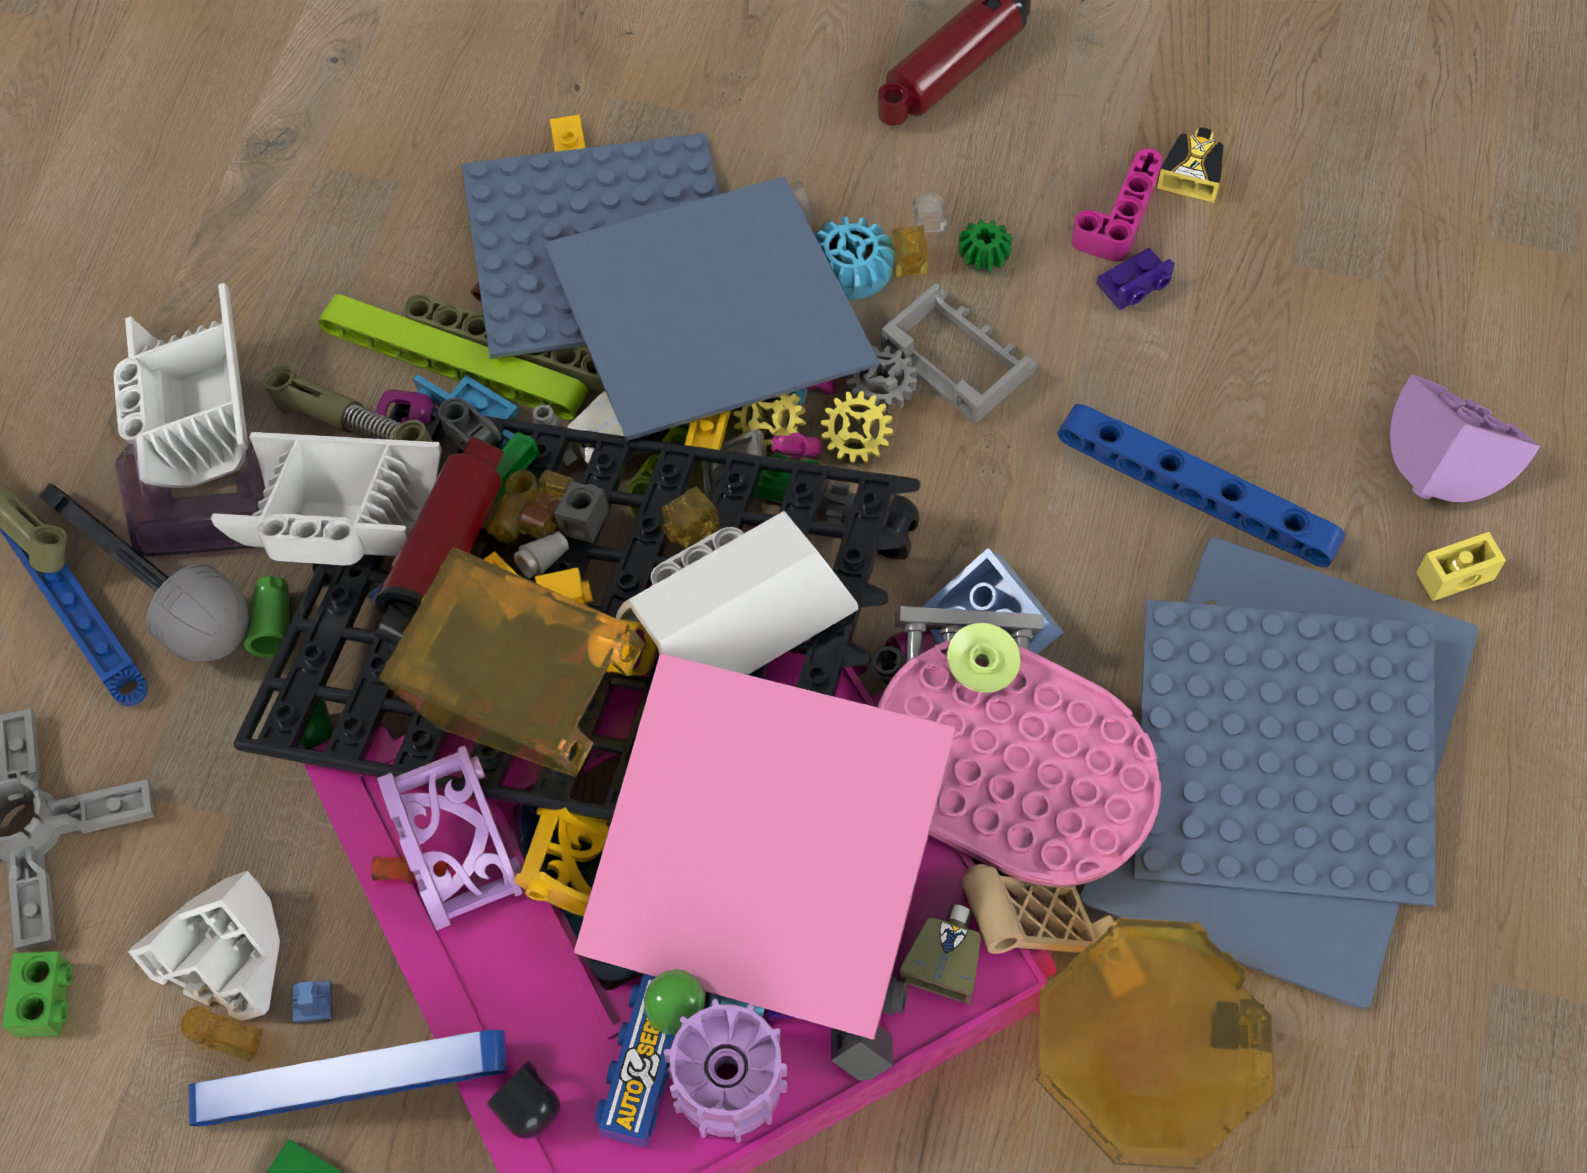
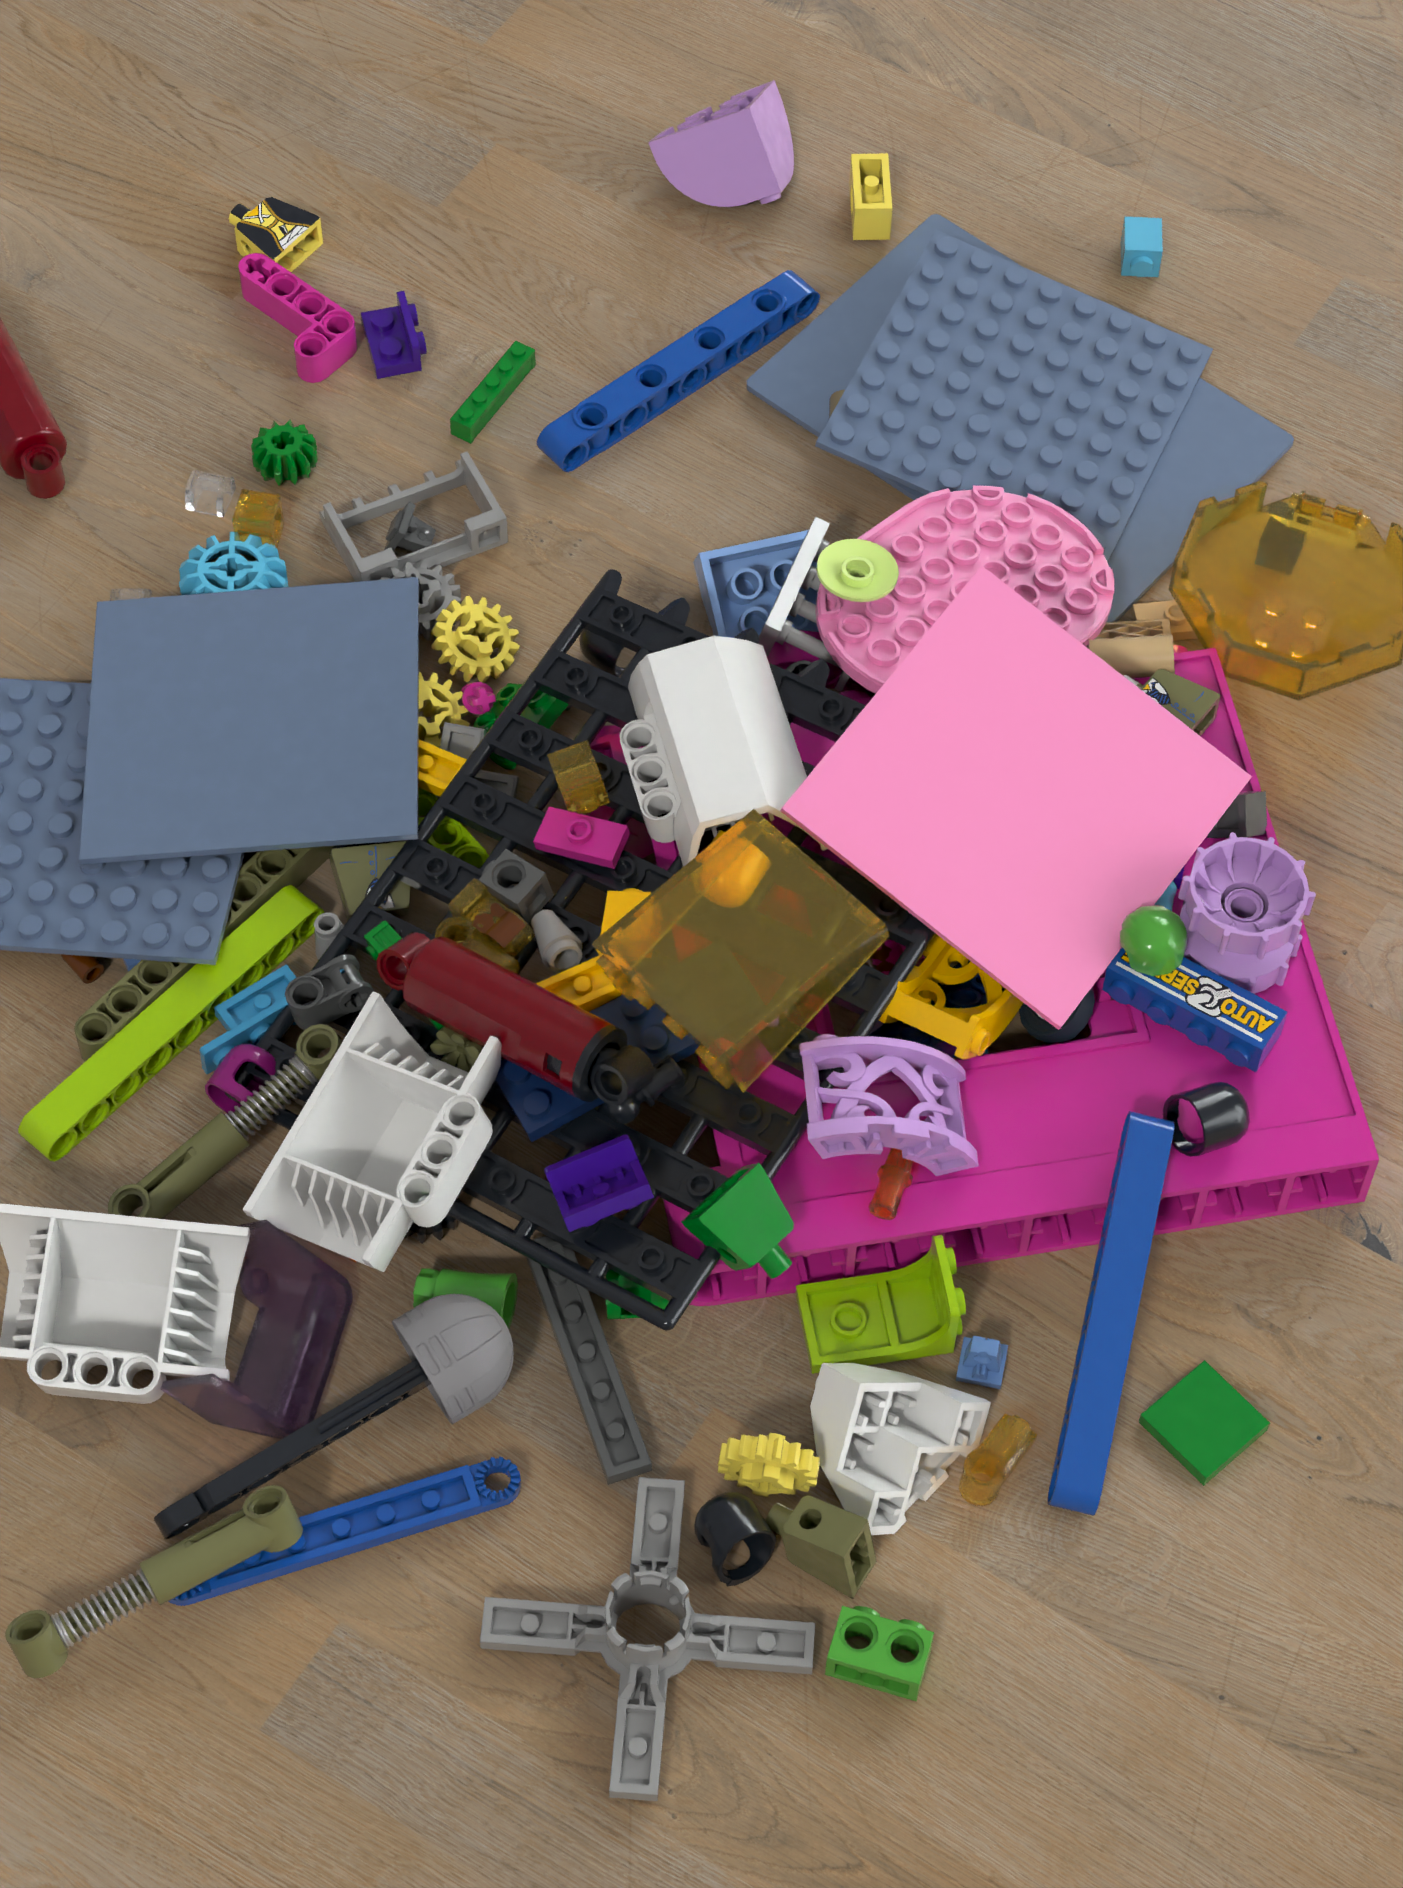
camera: 75 degrees left, 5 degrees down
(113, 925) = (826, 1542): none -> olive torso
(114, 854) = (727, 1521): none -> black helmet
(164, 862) = (768, 1464): none -> light yellow gear
(210, 735) = (591, 1370): none -> dark grey plate
(323, 765) = (745, 1221): none -> green torso
(327, 653) = (598, 1183): none -> dark purple bracket
(327, 909) = (885, 1313): none -> lime bracket
(643, 541) = (581, 837): none -> dark pink plate
(946, 352) = (409, 531): none -> dark grey brick
(1115, 362) = (492, 392): none -> green piece
(1529, 809) = (1141, 246): none -> medium azure brick

